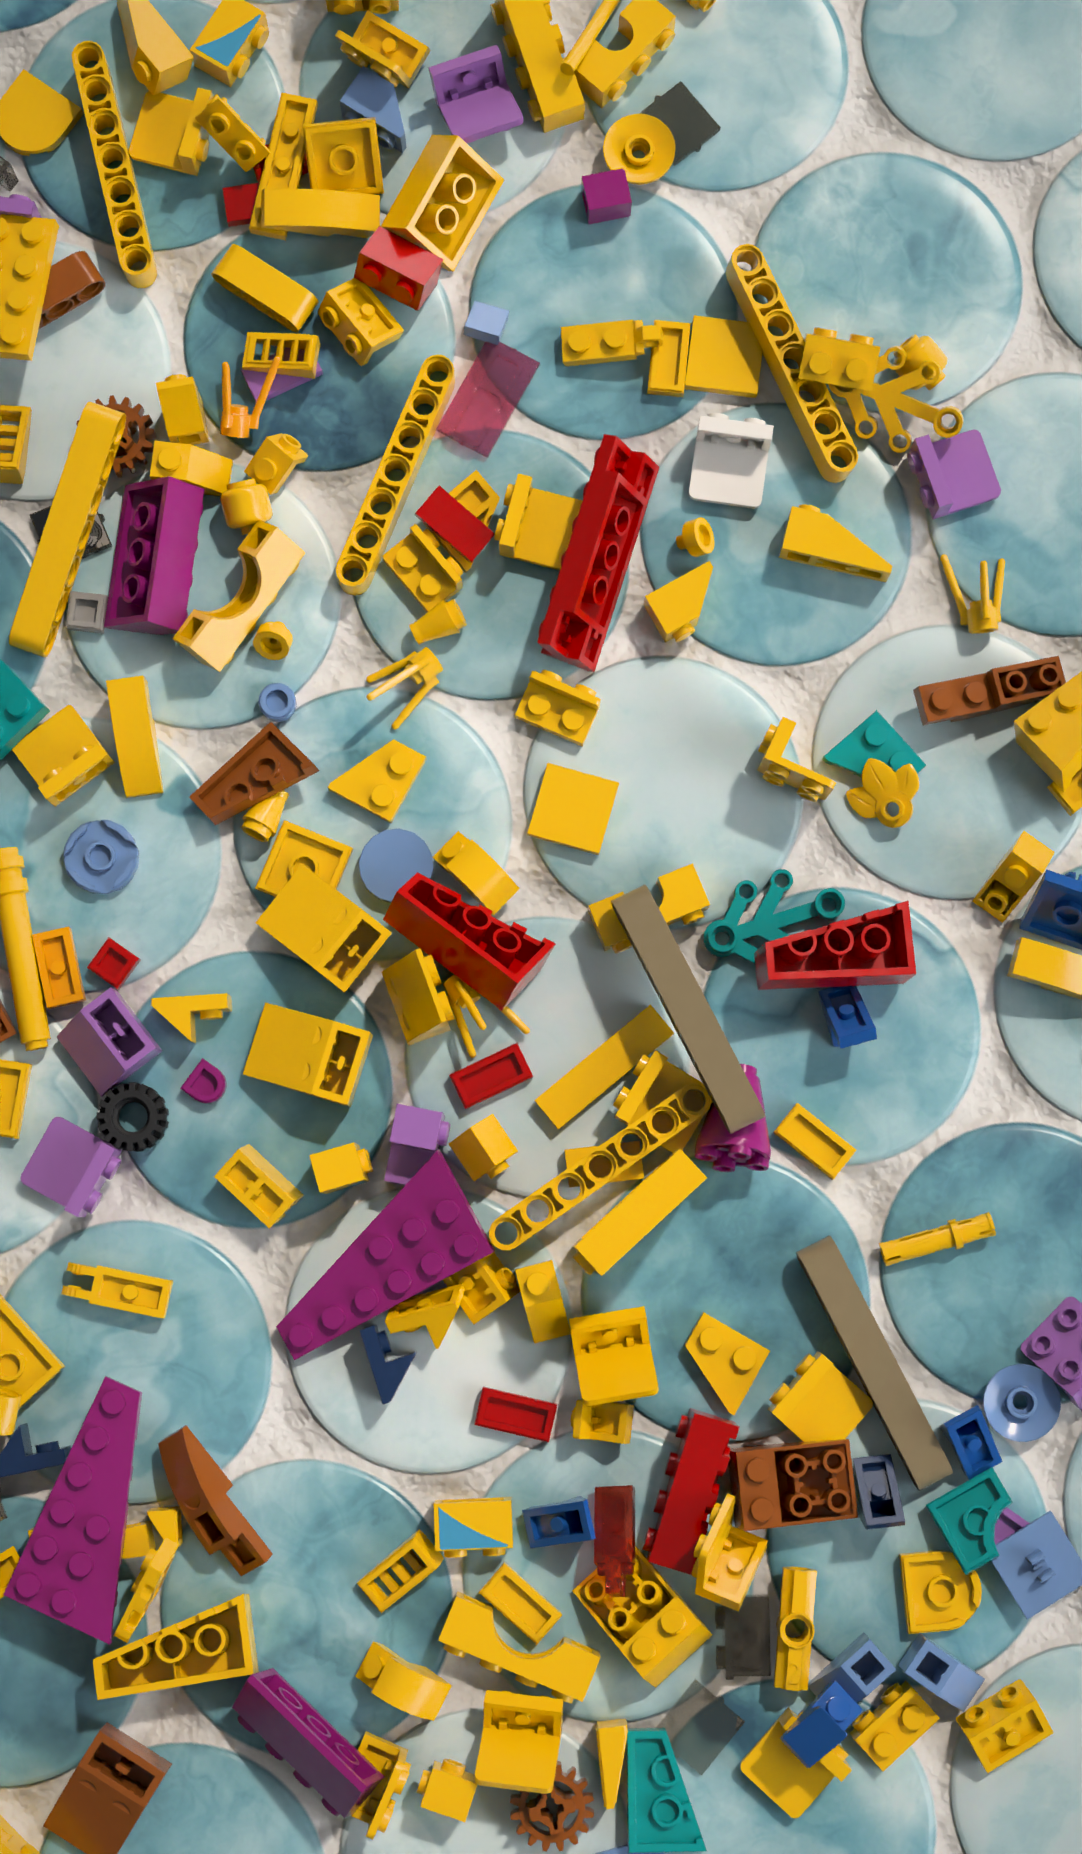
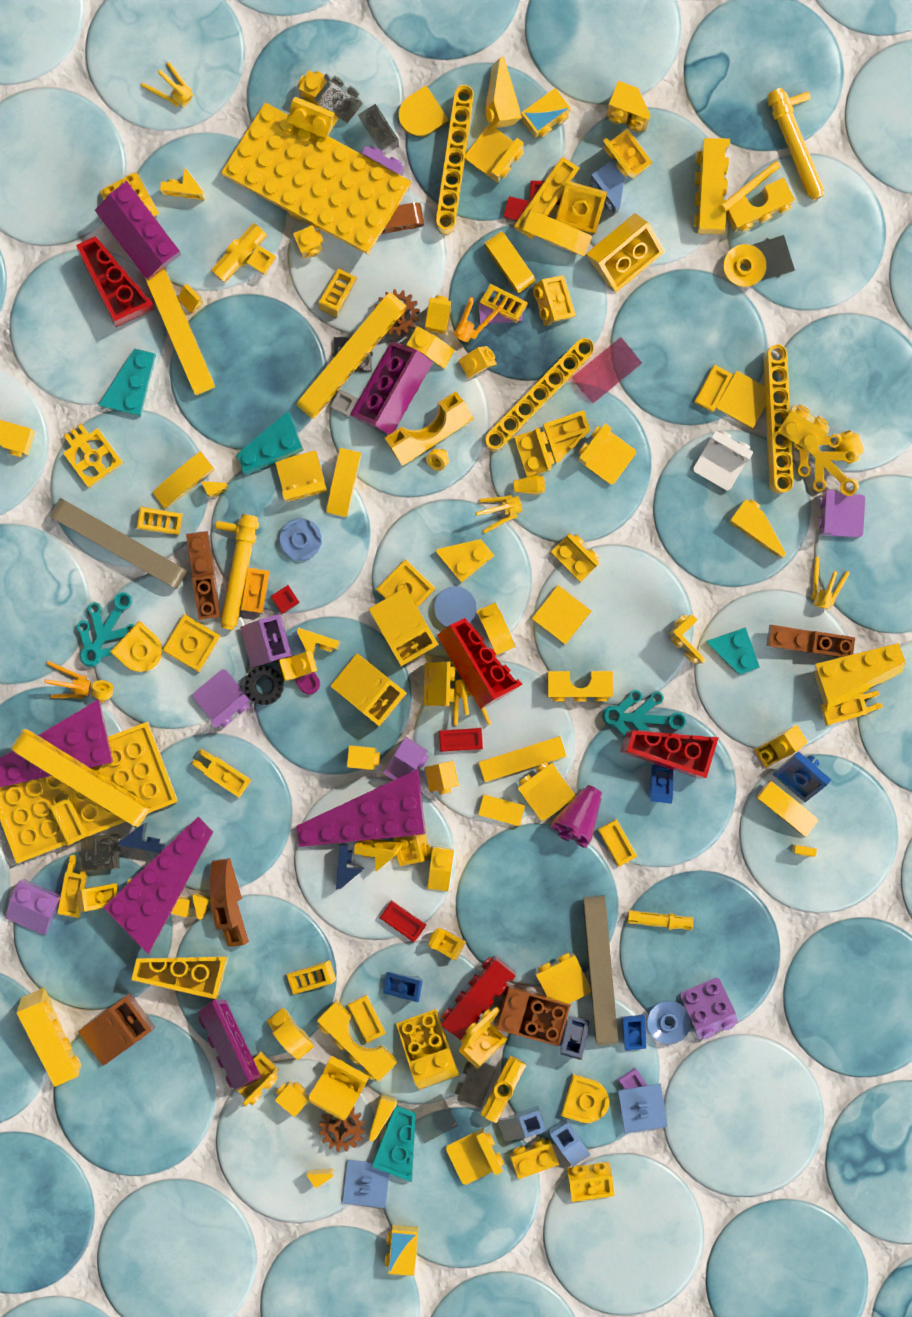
camera: 25 degrees right, 5 degrees up
(146, 1587) = (177, 932): yellow wing -> none
(173, 1062) = (297, 666): none -> yellow slope
(232, 133) = (525, 170): yellow hinge -> none
(245, 505) = (452, 379): yellow head -> none
(252, 775) = (399, 528): dark orange wing -> none
(258, 1185) = (316, 748): yellow hinge -> none
(263, 818) = (395, 553): yellow cone -> none
(277, 702) = (426, 493): medium blue tile -> none
(398, 268) = (586, 281): red brick -> none
(454, 524) = (560, 435): red tile -> none
(473, 1526) = (358, 969): yellow brick -> none
(475, 95) = (667, 201): medium lavender bracket -> none
(486, 322) = (622, 329): tile -> none
(597, 554) = (630, 482): red slope -> none
(606, 196) = (716, 285): magenta panel -> none
(608, 341) = (683, 366): yellow hinge -> none
(612, 1151) = (508, 805): yellow beam -> none
(613, 1356) = (465, 912): yellow bracket -> none
(614, 1536) = (429, 1004): clear red hinge -> none
(638, 1213) = (507, 845): yellow window -> none
(678, 604) = (663, 527): yellow slope -> none
(688, 1009) = (578, 748): dark tan beam -> none
(696, 537) = (687, 494): yellow tile -> none
(726, 1359) = (523, 937): yellow wing -> none
(821, 1725) = (496, 1143): blue slope -> none
(881, 788) = (731, 670): yellow plate -> none
(969, 1518) = (616, 1070): teal tile -> none

